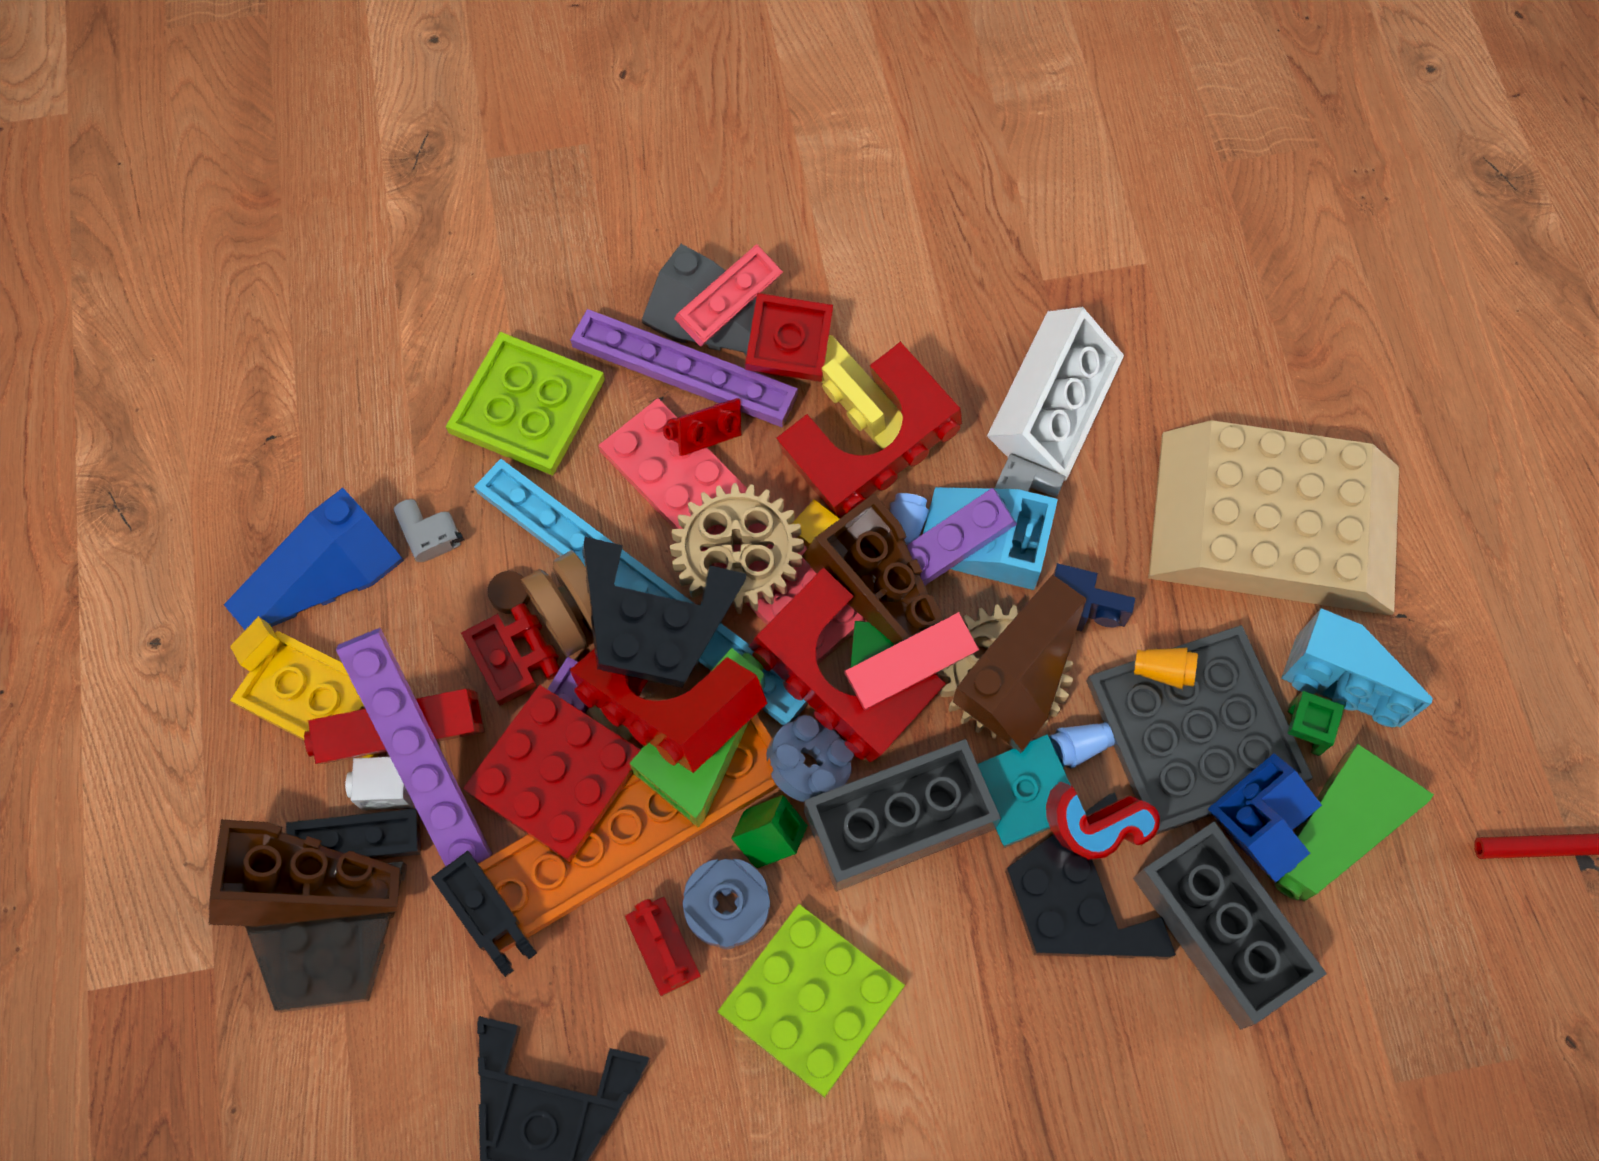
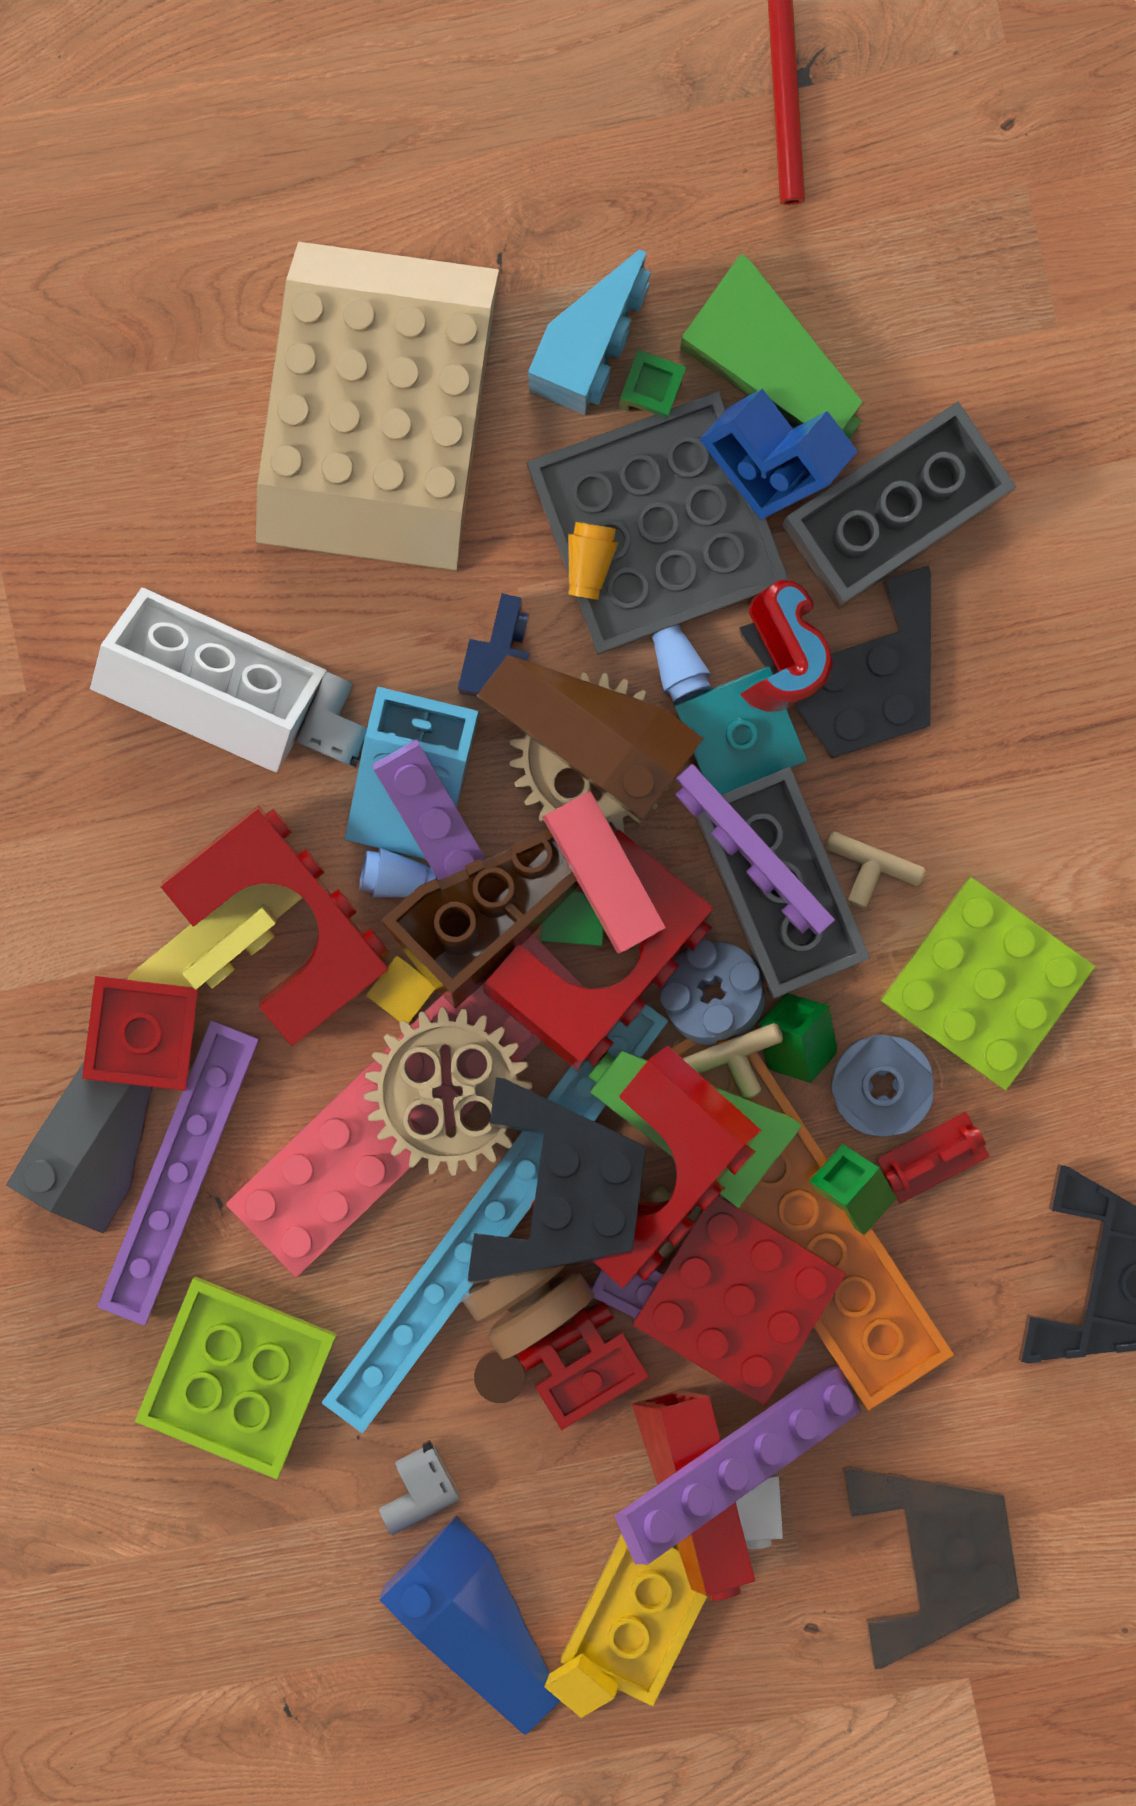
camera: 90 degrees left, 20 degrees up
(283, 879) = (875, 1605): reddish brown wedge -> none
(370, 834) = (819, 1533): black plate -> none
(481, 909) = (907, 1369): black hinge -> none
(638, 869) = (854, 1187): none -> green panel
(705, 427) = (266, 1128): red hinge -> none
(728, 295) = (82, 1116): coral tile -> none
(758, 771) = (735, 1053): none -> tan piece
(913, 790) = (766, 868): none -> medium lavender plate
(917, 902) = (873, 863): none -> tan piece

